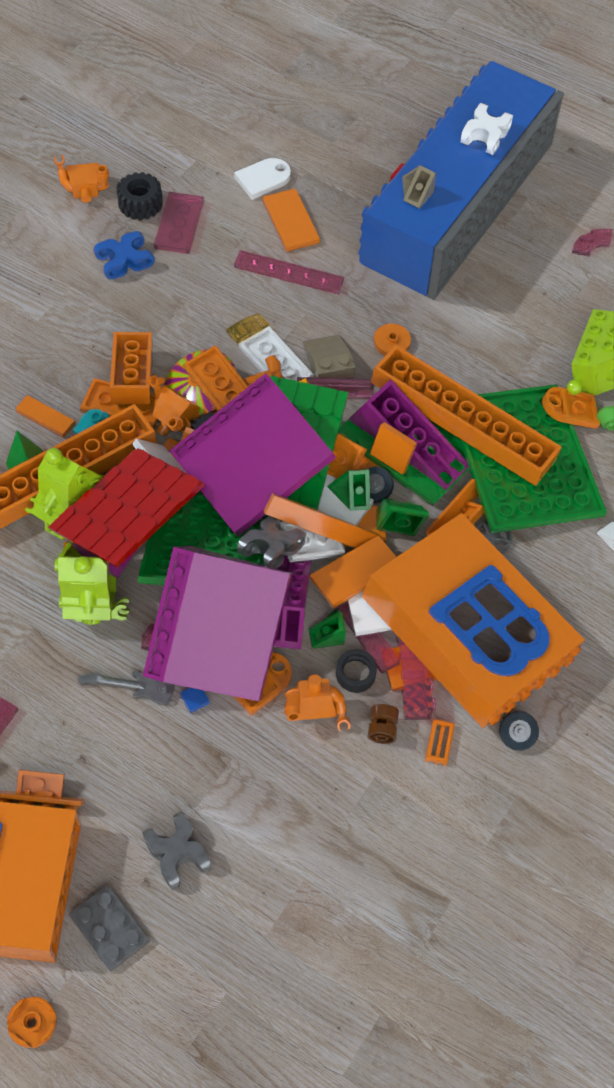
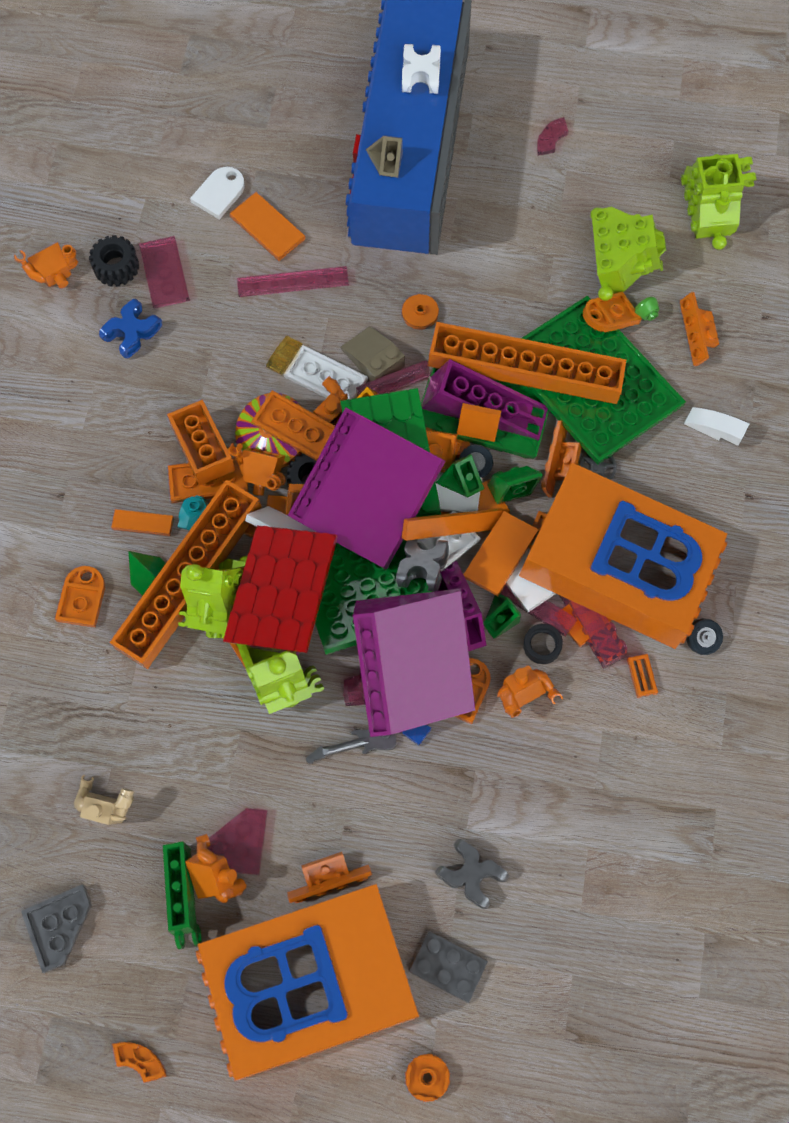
camera: 20 degrees left, 10 degrees up
(383, 722) = (587, 675): reddish brown wheel -> none

